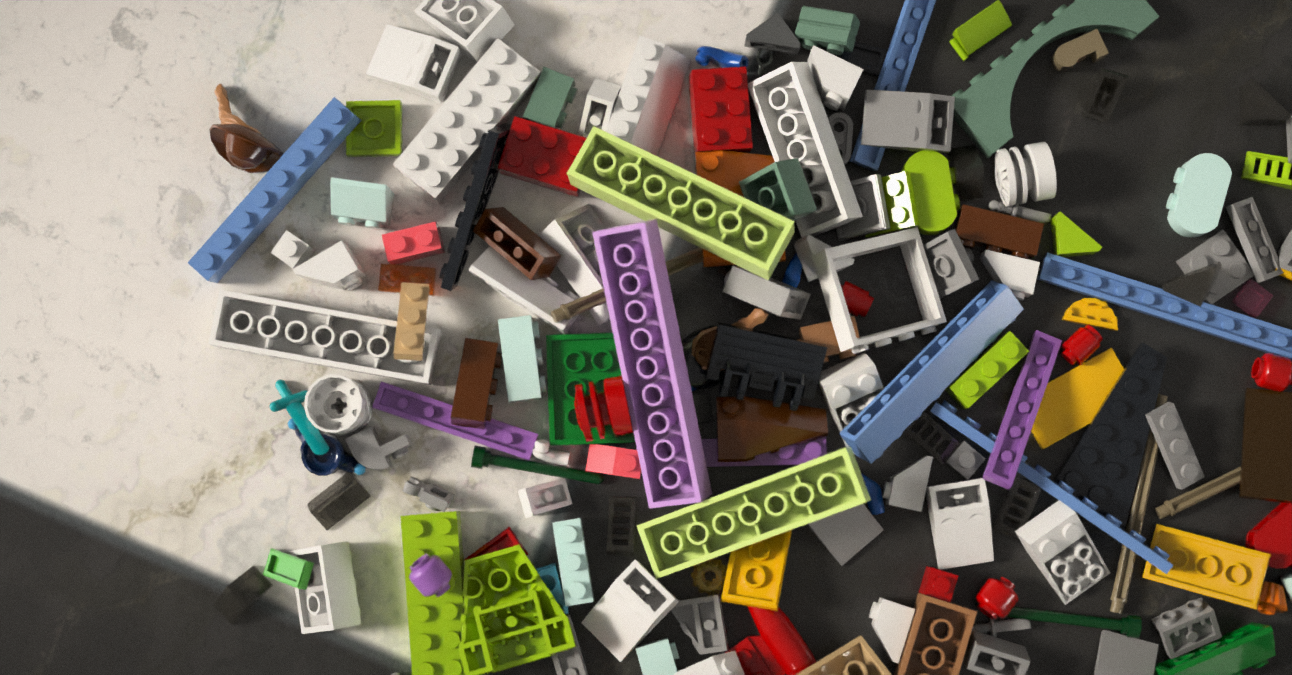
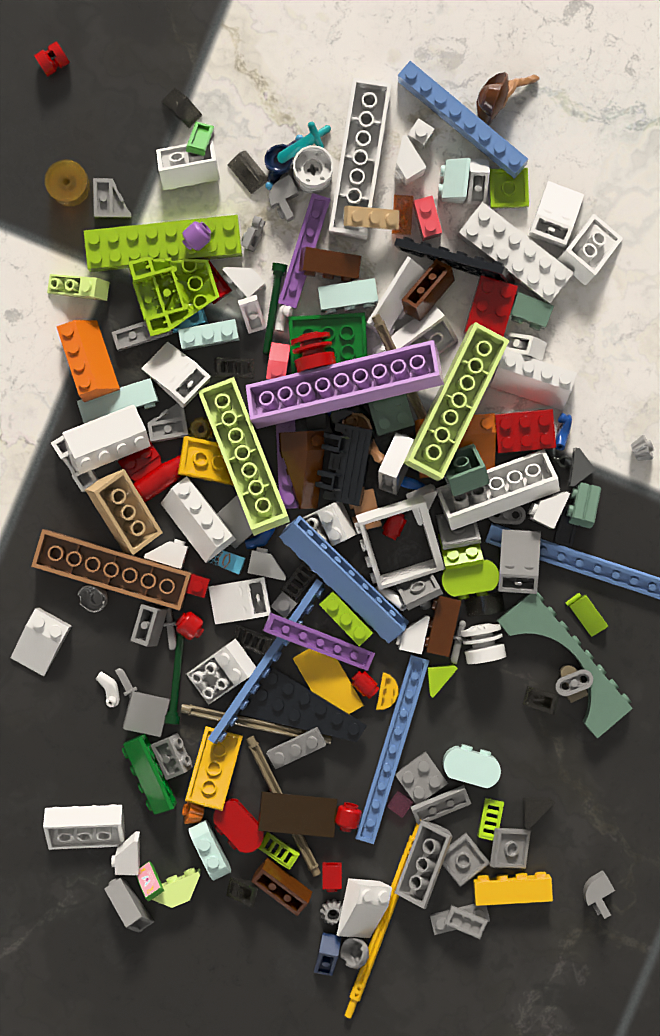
camera: 80 degrees right, 5 degrees up
(364, 168) = (478, 181): none -> white slope
(494, 507) = (245, 279): none -> white slope
(696, 300) = (391, 414): none -> sand green brick
(842, 583) = (197, 519): none -> white slope
(900, 542) = (229, 561): none -> medium azure leg
(956, 302) = (393, 597): none -> white arm
(1084, 45) = (574, 682): none -> light grey plate
(1194, 285) = (407, 762): clear smoke slope -> none

